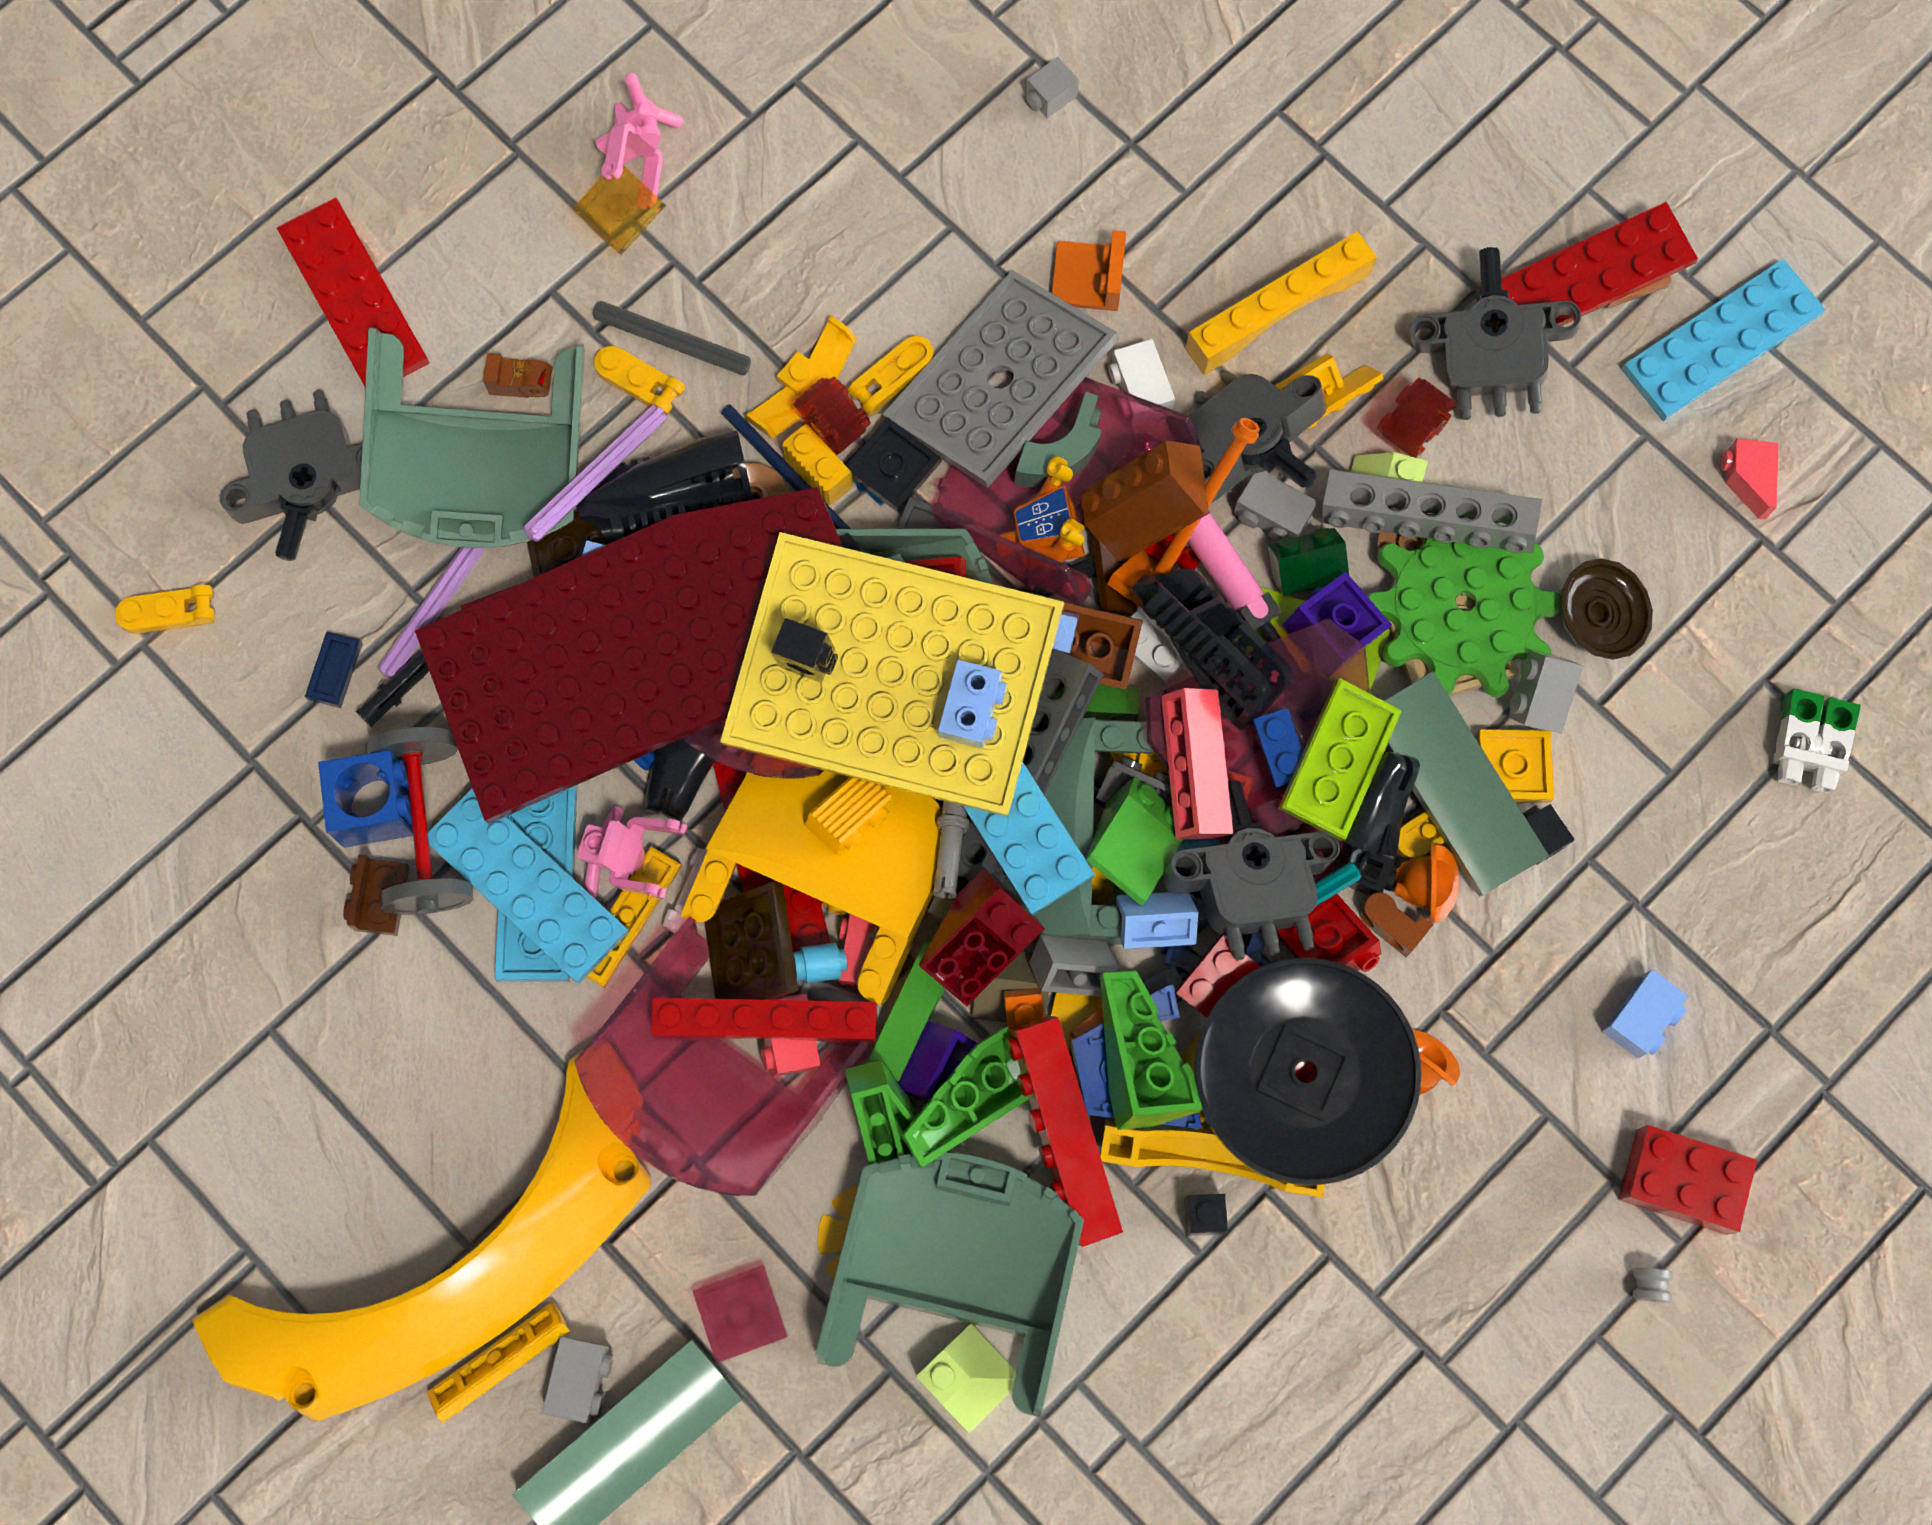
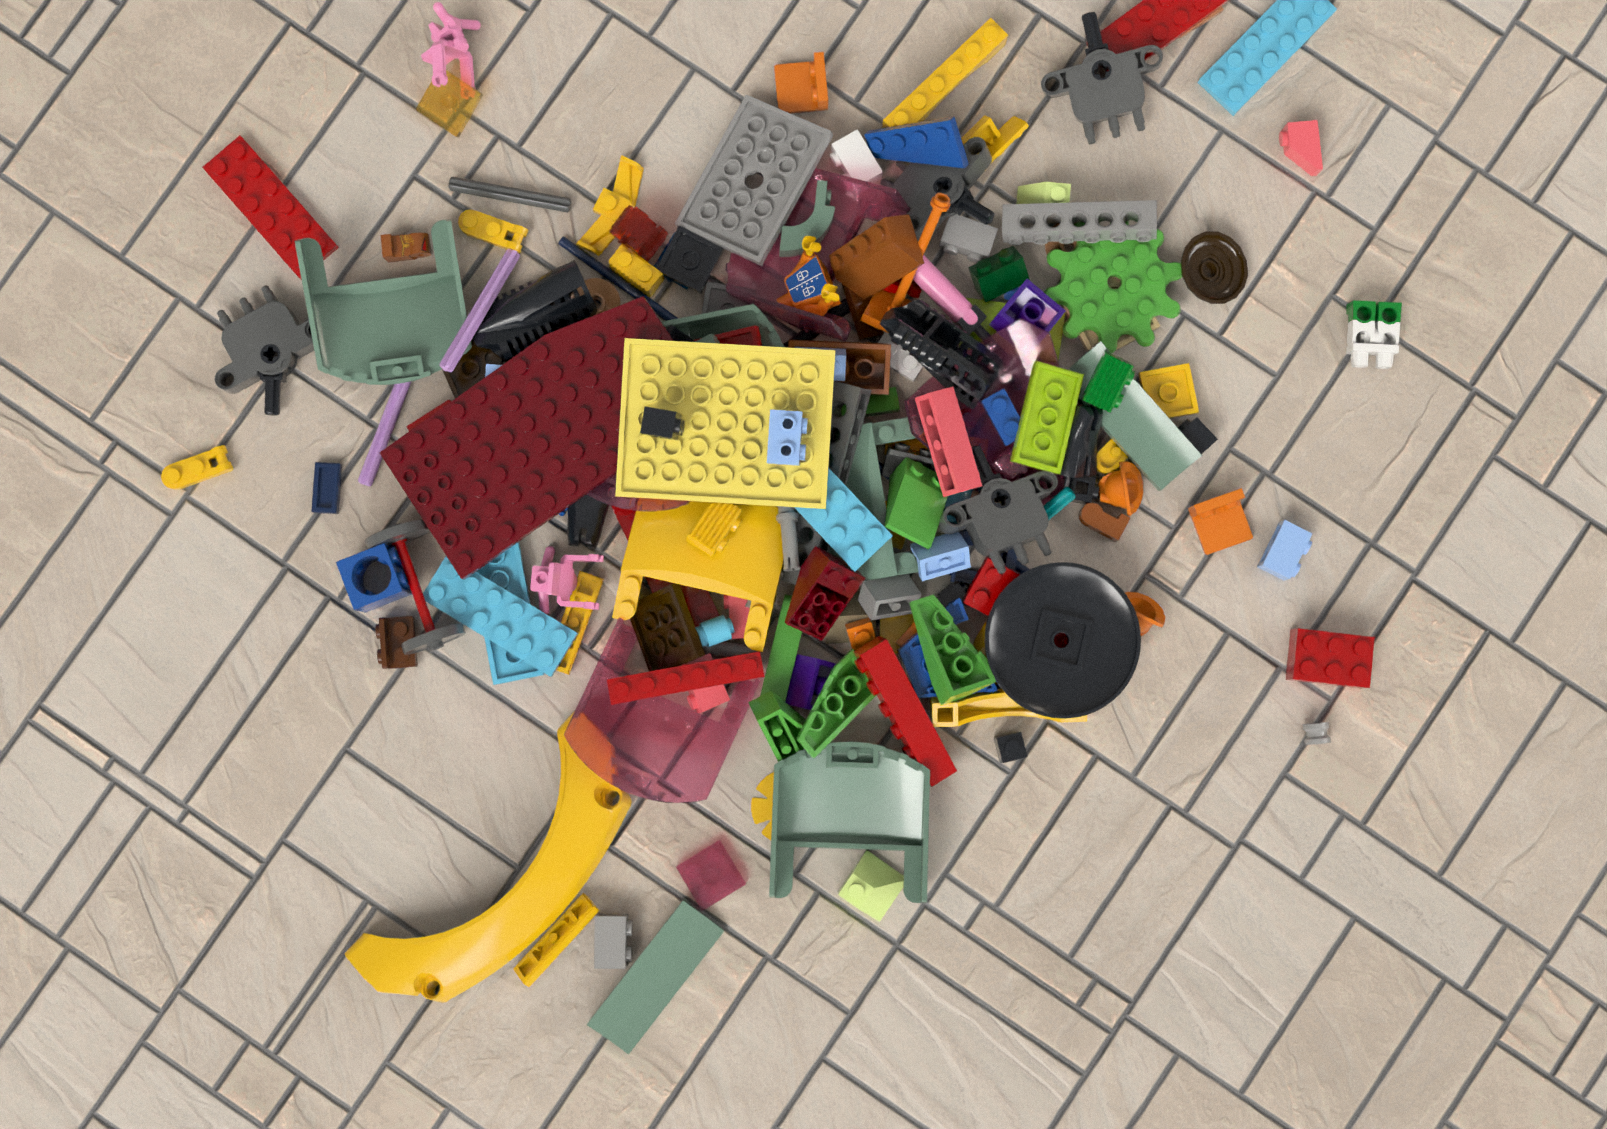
camera: 10 degrees left, 10 degrees up
(391, 692) = (373, 494): black pin -> none
(673, 920) = (606, 617): white bar -> none
(892, 373) = (675, 190): yellow plate -> none
(1235, 368) = (920, 142): none -> blue wing
(1336, 937) = (1066, 540): red plate -> none
(1418, 417) = (1057, 151): clear red brick -> none
(1434, 727) = (1108, 381): none -> green brick
(1545, 691) = (1180, 336): light grey brick -> none
(1560, 955) = (1221, 522): none -> orange bracket

